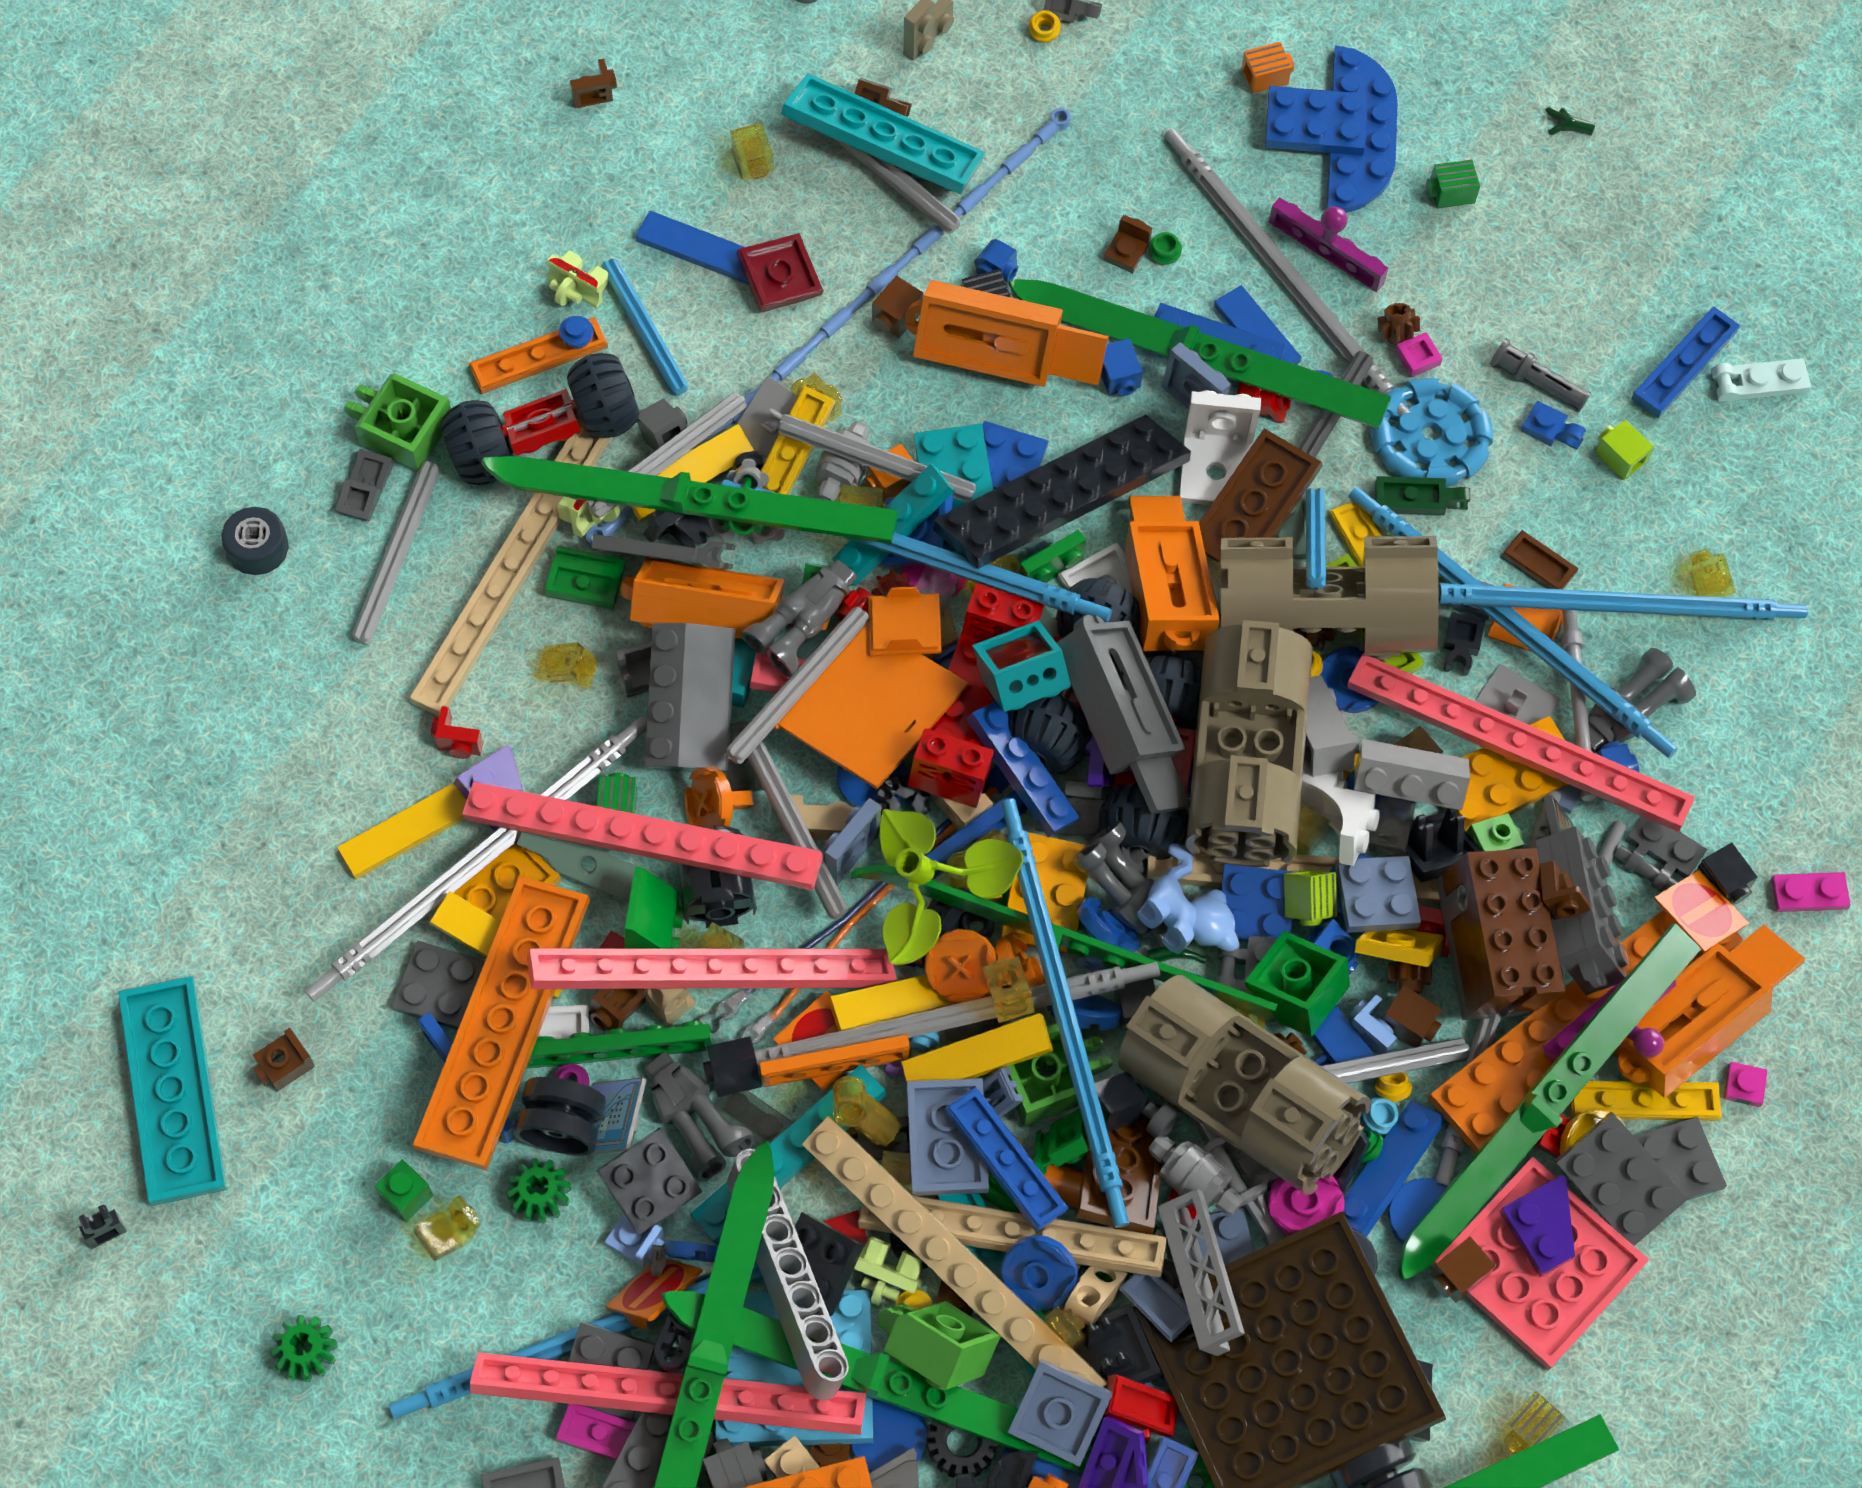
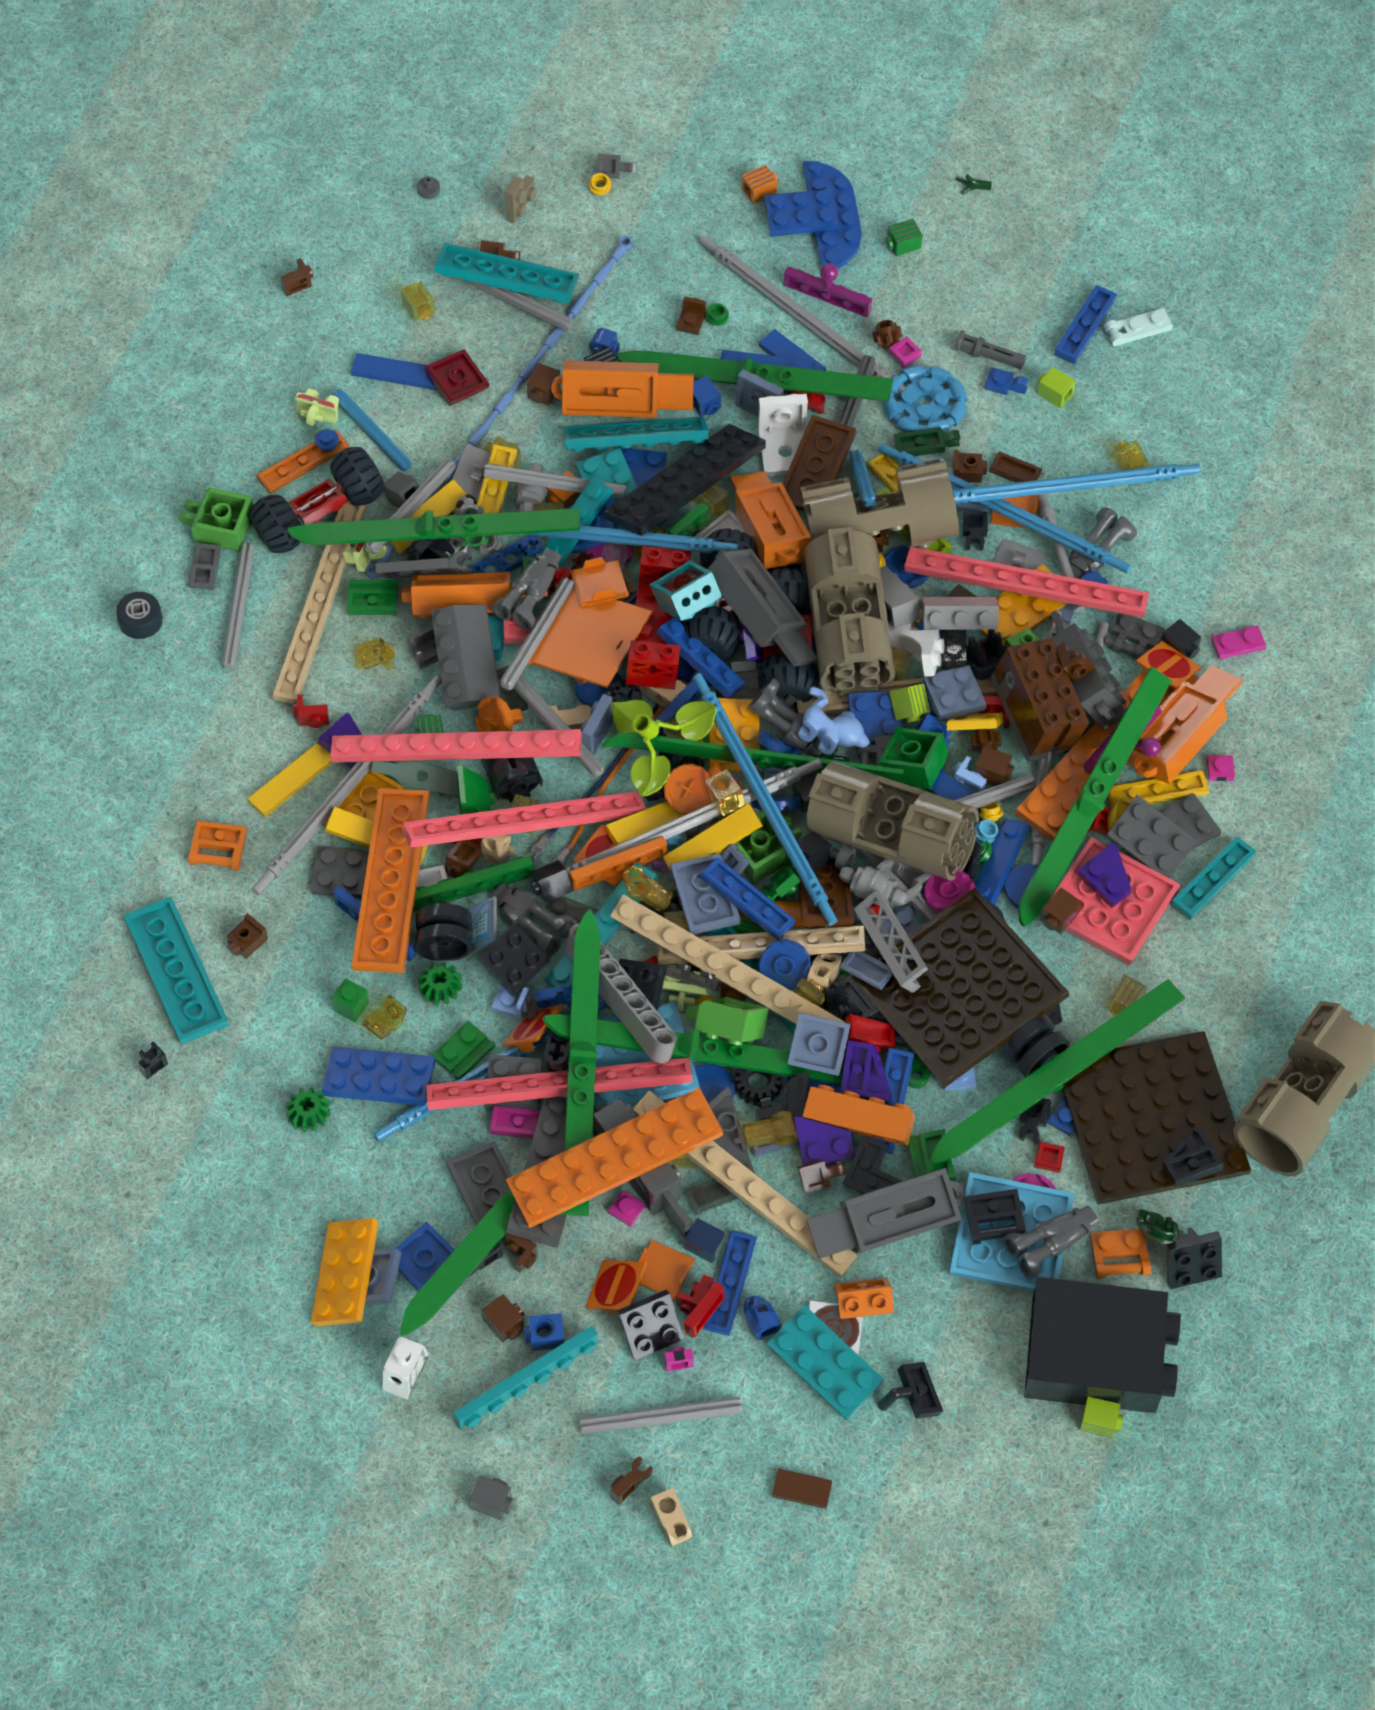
camera: 10 degrees left, 5 degrees down
(283, 899) = (218, 837): none -> orange plate
(416, 1317) = (378, 1076): none -> blue plate
(549, 1301) = (463, 1050): none -> green plate
(775, 555) = (498, 558): none -> blue beam
(913, 1273) = (704, 979): none -> clear smoke plate
(1009, 404) = (635, 432): none -> teal plate
(1098, 527) = (715, 498): none -> clear yellow brick
(1473, 546) = (969, 466): none -> reddish brown brick
(1700, 1258) = (1213, 878): none -> teal plate

